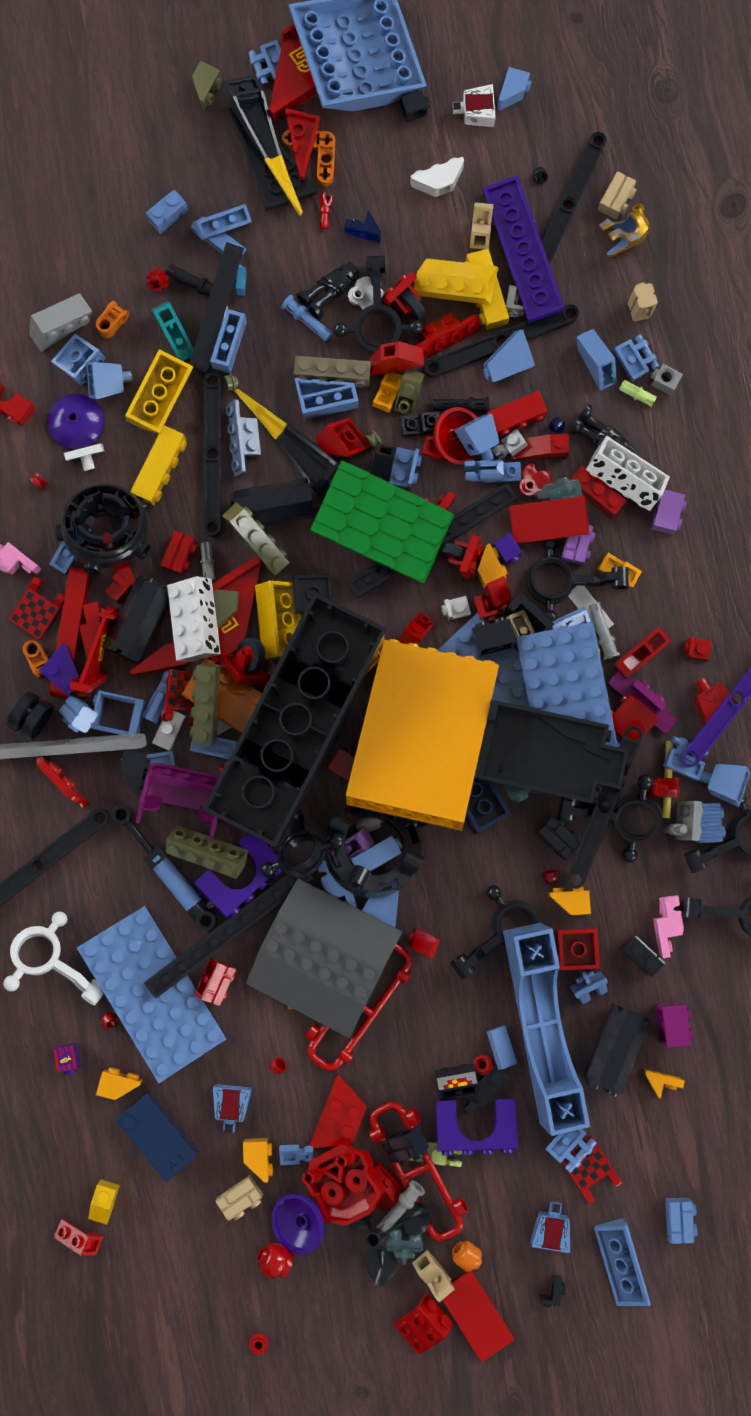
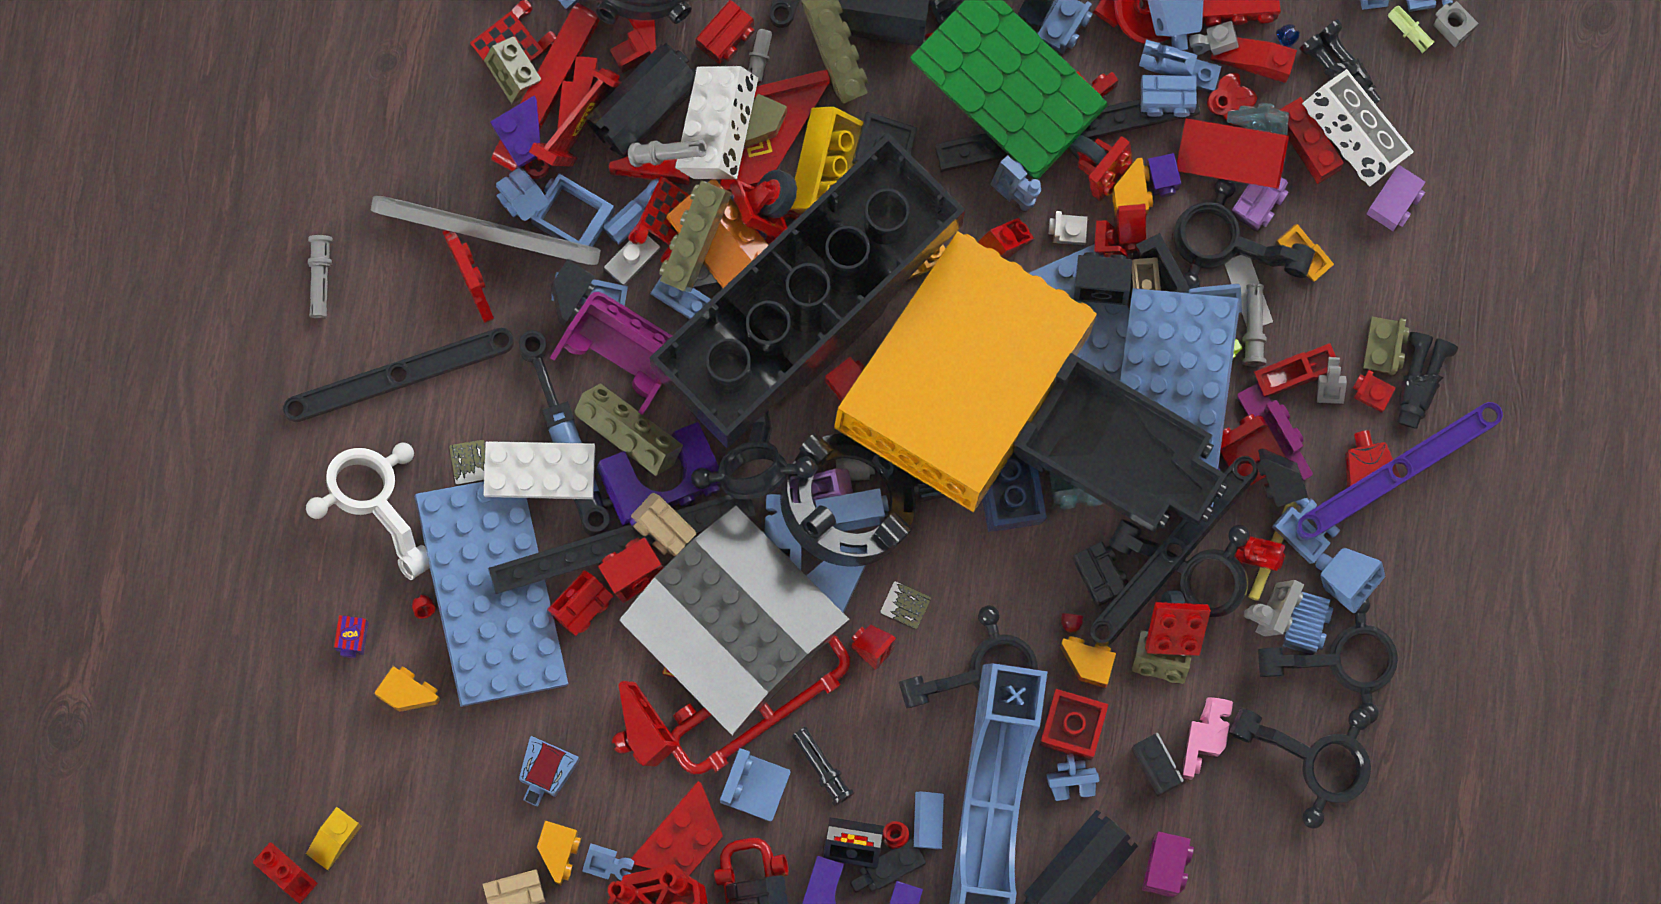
camera: 15 degrees right, 5 degrees down
(30, 715) = (458, 175): black wheel -> none
(36, 660) = (490, 107): orange piece -> none
(41, 628) = (511, 68): none -> olive bracket
(107, 908) = (468, 461): none -> sticker
(155, 901) = (539, 470): none -> white plate
(157, 1136) = (435, 776): dark blue brick -> none
(160, 654) = (657, 152): none -> light grey pin
(242, 948) = (631, 569): none -> red slope
(252, 911) = (663, 525): none -> tan brick
(288, 1052) = (644, 728): none -> red slope
(377, 1065) = (755, 786): none -> medium blue bracket
(408, 590) = (1012, 184): none -> medium blue plate
(427, 1040) = (829, 777): none -> black pin
(435, 903) = (905, 605): none -> sticker
(492, 494) = (1168, 94): none -> medium blue brick
(620, 879) = (1164, 666): none -> olive bracket
(624, 858) = (1177, 626): none -> red plate
(661, 731) = (1283, 477): none -> black slope
(670, 655) = (1332, 386): none -> light grey plate
(695, 615) = (1384, 346): none -> olive bracket
(727, 637) = (1419, 389): none -> black piece

